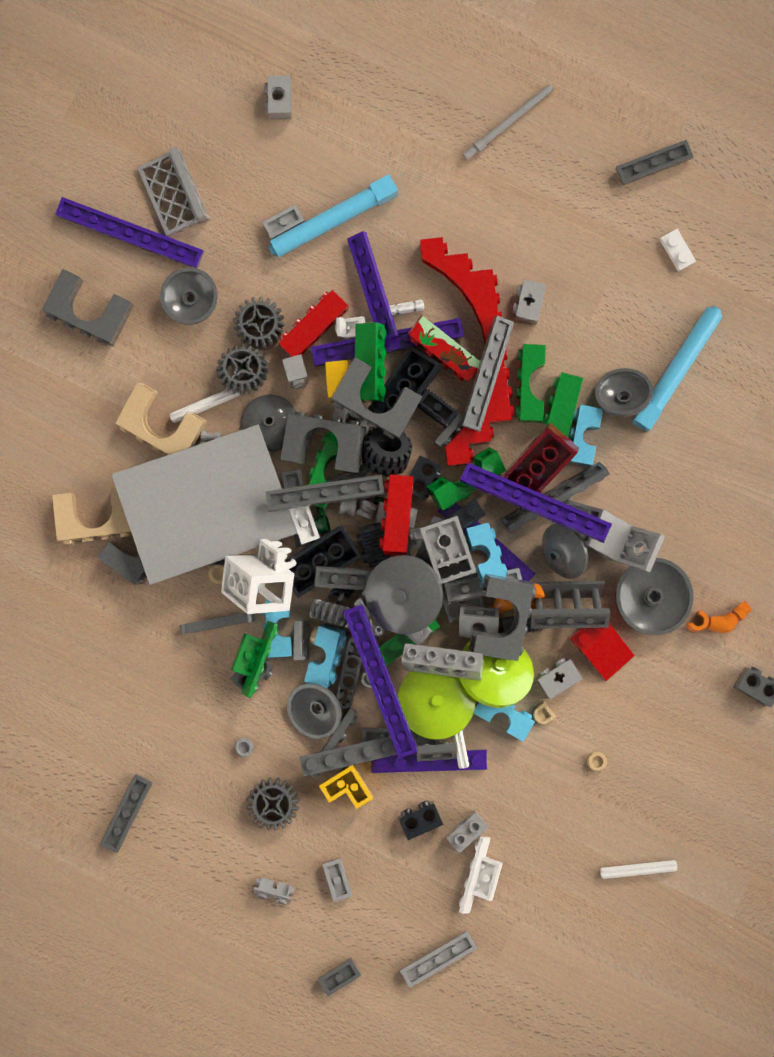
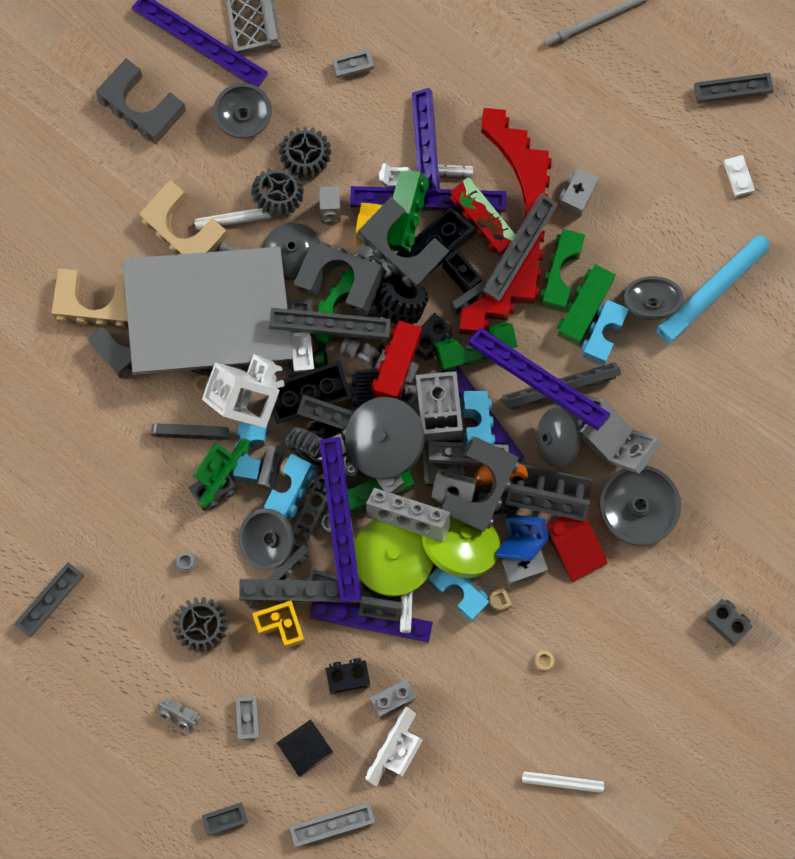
camera: 15 degrees right, 10 degrees down
(314, 324) = (360, 165): red brick -> none
(376, 194) = (452, 57): medium azure brick -> none
(397, 894) = (305, 748): none -> black slope
(468, 514) = (471, 379): black brick -> none
(542, 459) = (556, 341): dark red brick -> none
(554, 656) = (525, 537): none -> blue bracket
(723, 623) = (701, 549): orange piece -> none

